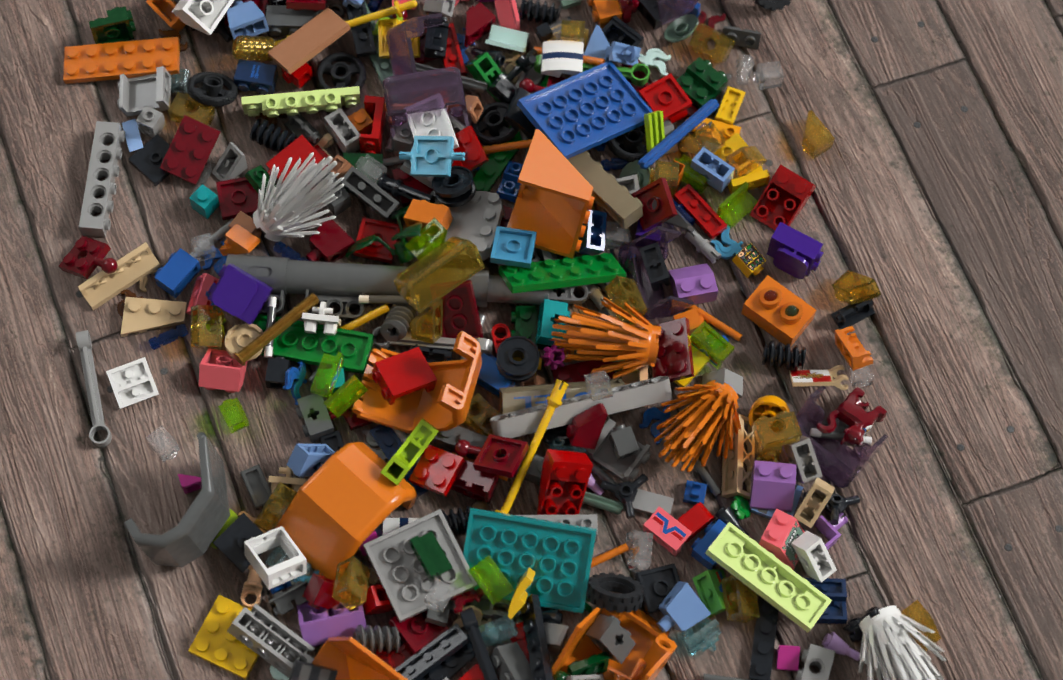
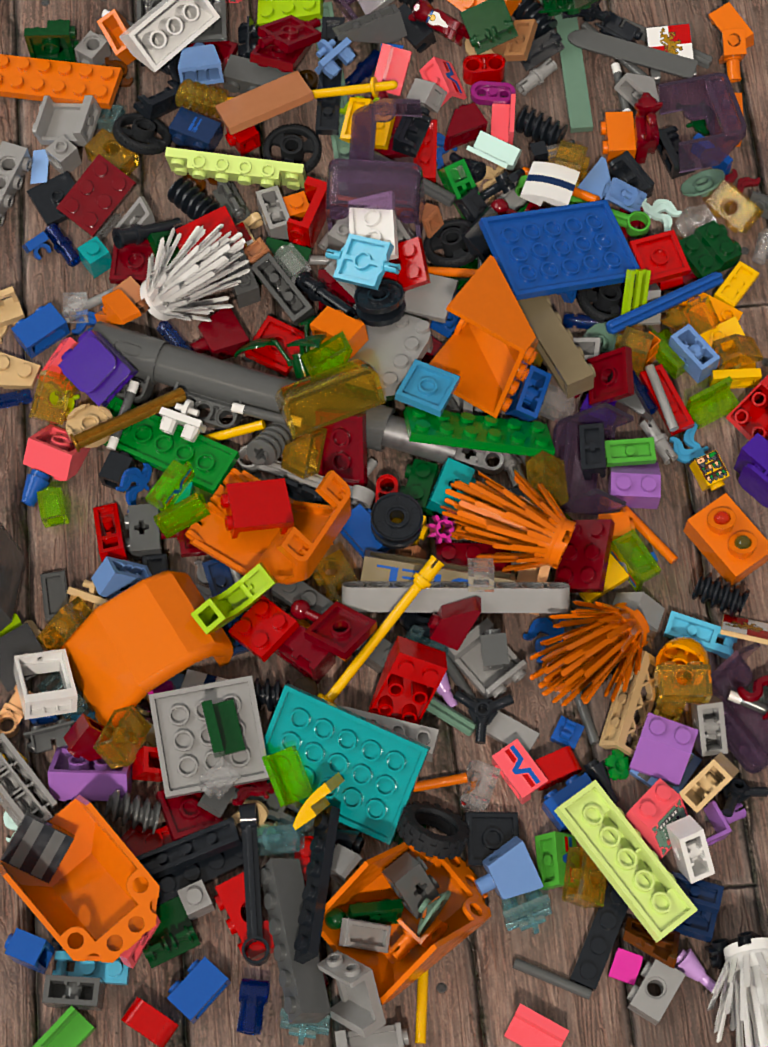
camera: 20 degrees right, 0 degrees up
(150, 32) = (92, 49): none -> light grey brick
(150, 201) = (36, 243): none -> blue tile
(173, 197) = (62, 245): none -> clear blue pin
(213, 399) = (34, 482): none -> blue cone
(218, 59) = (158, 104): none -> black hinge
(235, 174) = (137, 234): none -> black pin
(287, 425) = (109, 532): none -> red slope
(493, 174) = (431, 299): none -> light grey tile
(630, 652) = (430, 910): none -> sand green dish
(681, 60) = (693, 218): none -> clear bracket
(684, 260) = (630, 452): none -> bright green panel
(697, 211) = (662, 398): none -> light grey bar
(781, 388) = (703, 632): none -> medium azure plate
(815, 637) = (664, 950): none -> reddish brown wing

